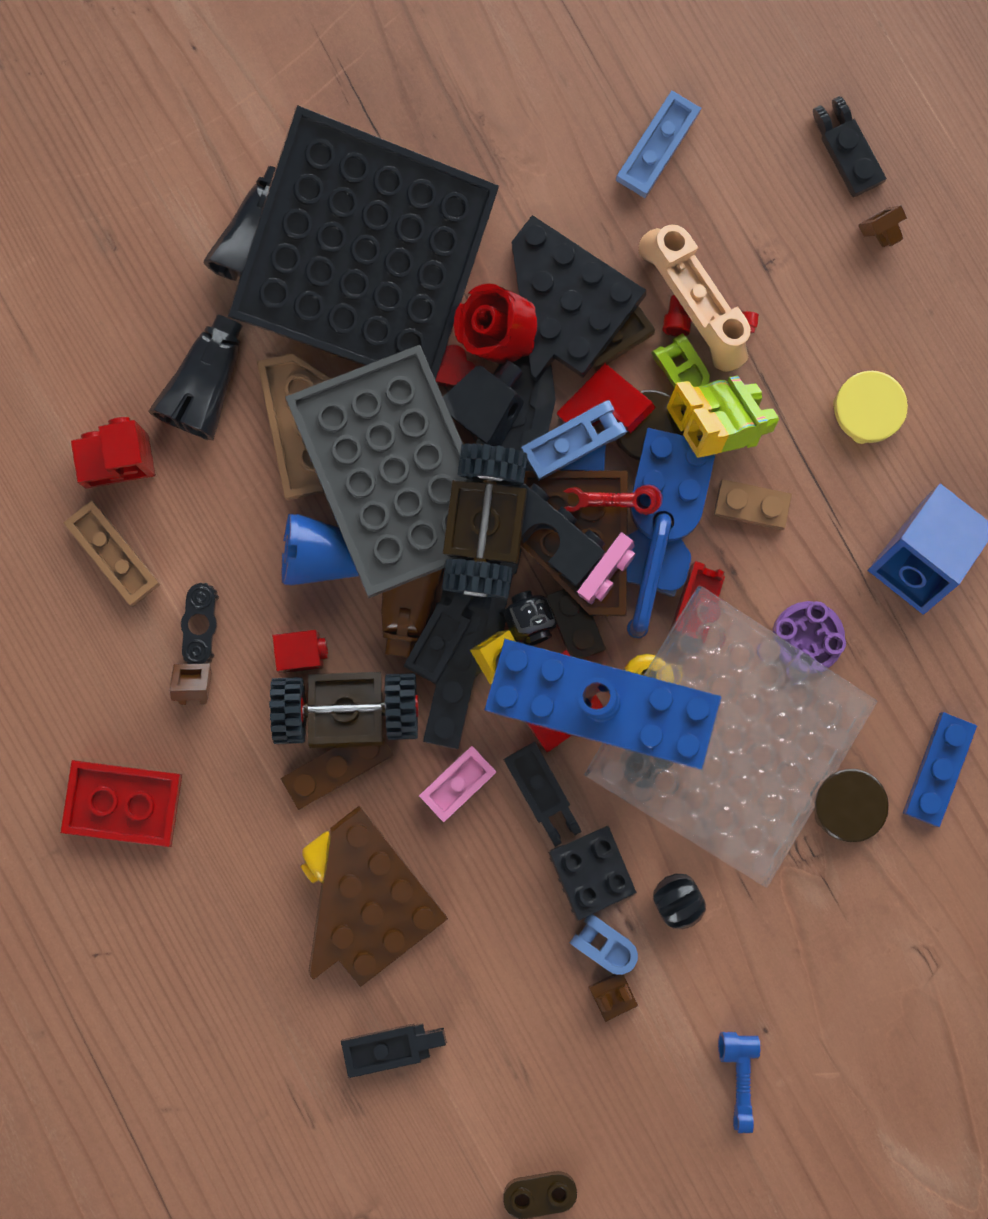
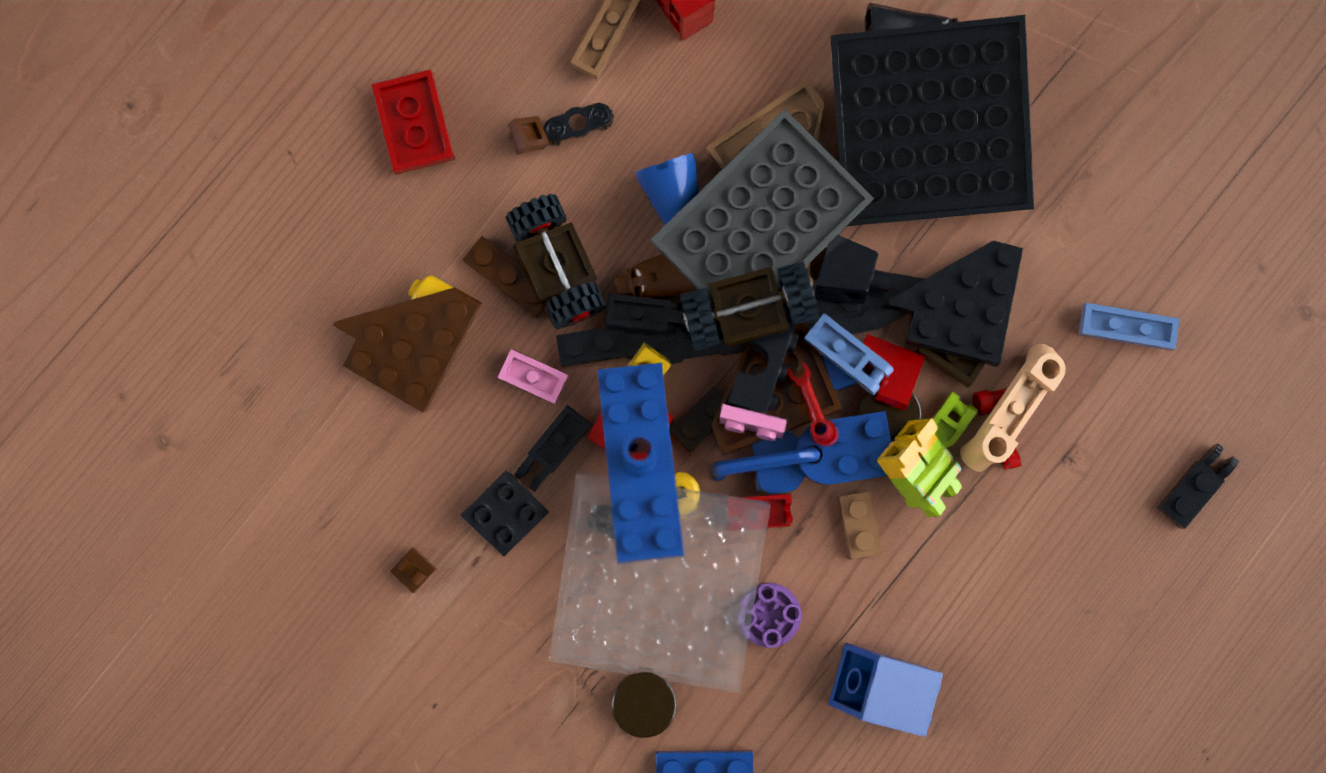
camera: 70 degrees right, 0 degrees up
(199, 386) = (764, 43): black piece -> none
(299, 651) = (587, 208): red brick -> none
(390, 1048) = (303, 408): black hinge -> none
(453, 366) = (870, 235): red tile -> none
(496, 324) = (918, 253): red brick -> none
(530, 618) = (689, 380): black head -> none
(539, 1190) = (236, 572): dark brown plate -> none
(617, 953) = (448, 559): medium blue plate -> none
(679, 901) = (509, 592): black piece -> none
(740, 1050) = (408, 691): blue brick -> none
(870, 407) = (984, 591): light yellow tile -> none
(885, 226) = (1143, 542): reddish brown tile -> none

